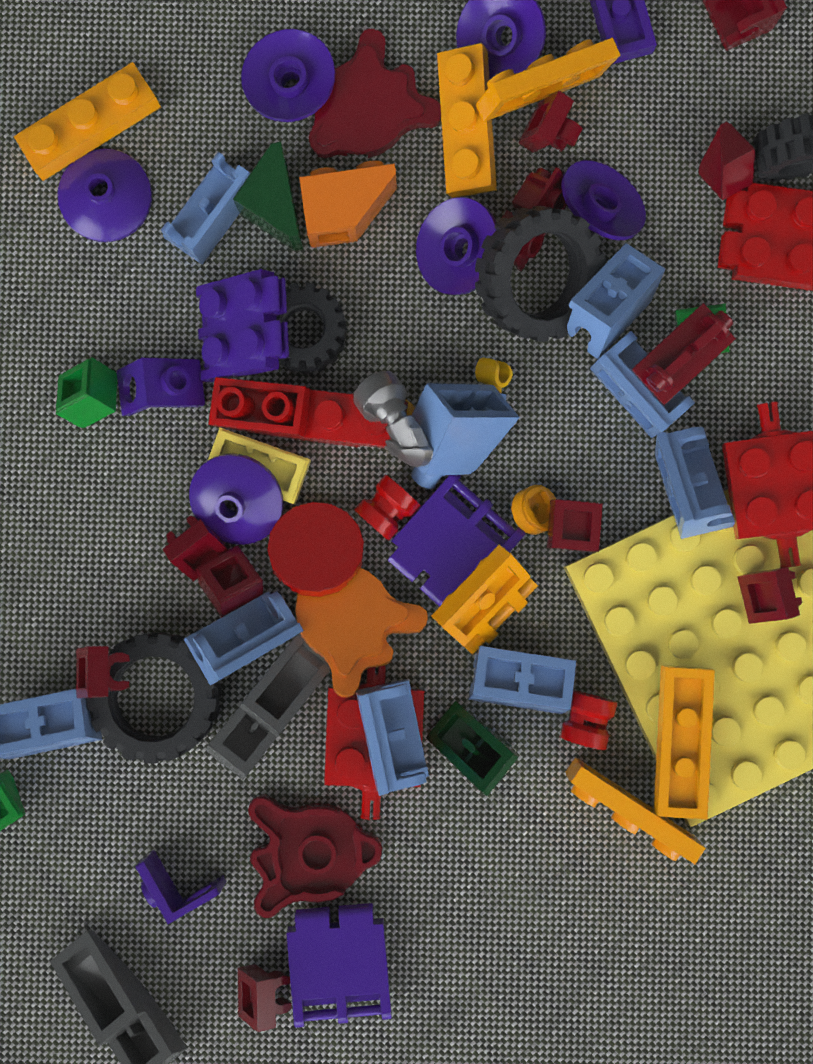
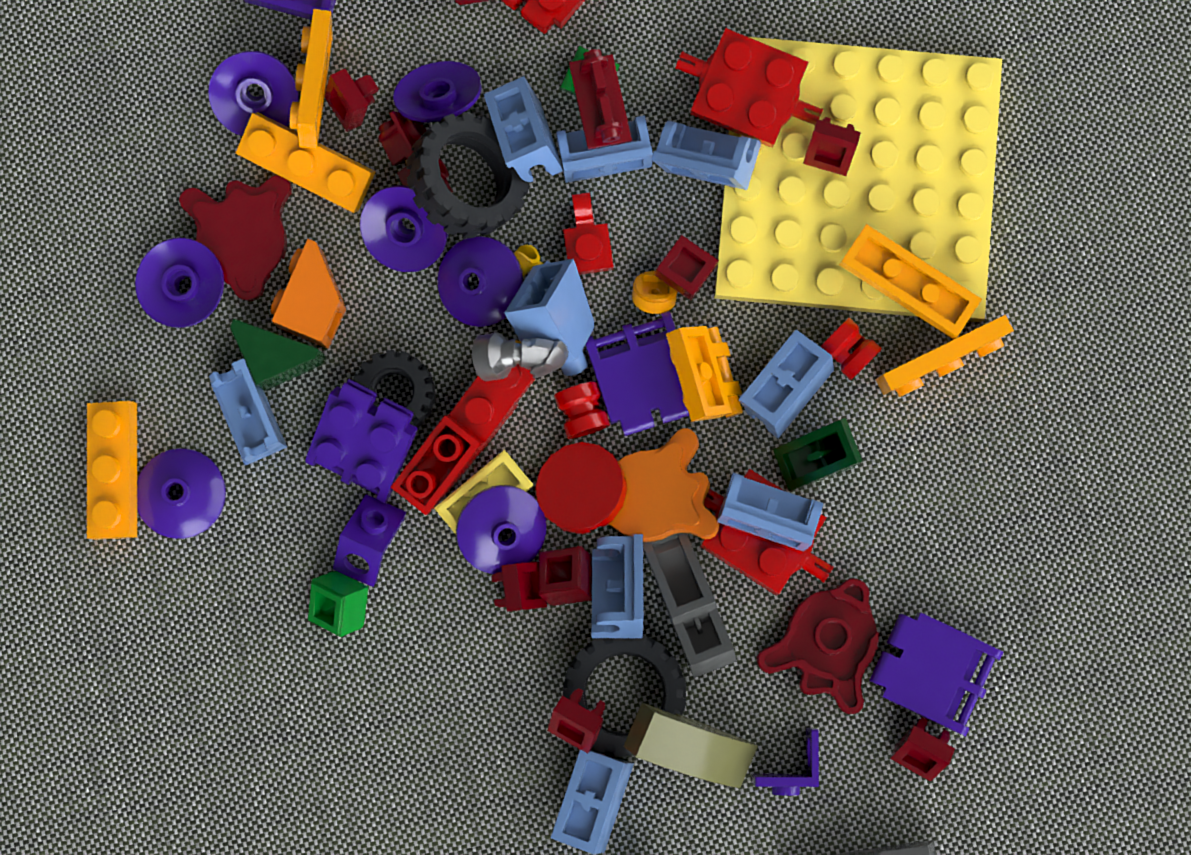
camera: 55 degrees left, 5 degrees down
(133, 785) = (689, 747): none -> slope
(465, 357) = (498, 280): none -> dark purple dish
(545, 422) = (588, 242): none -> red plate

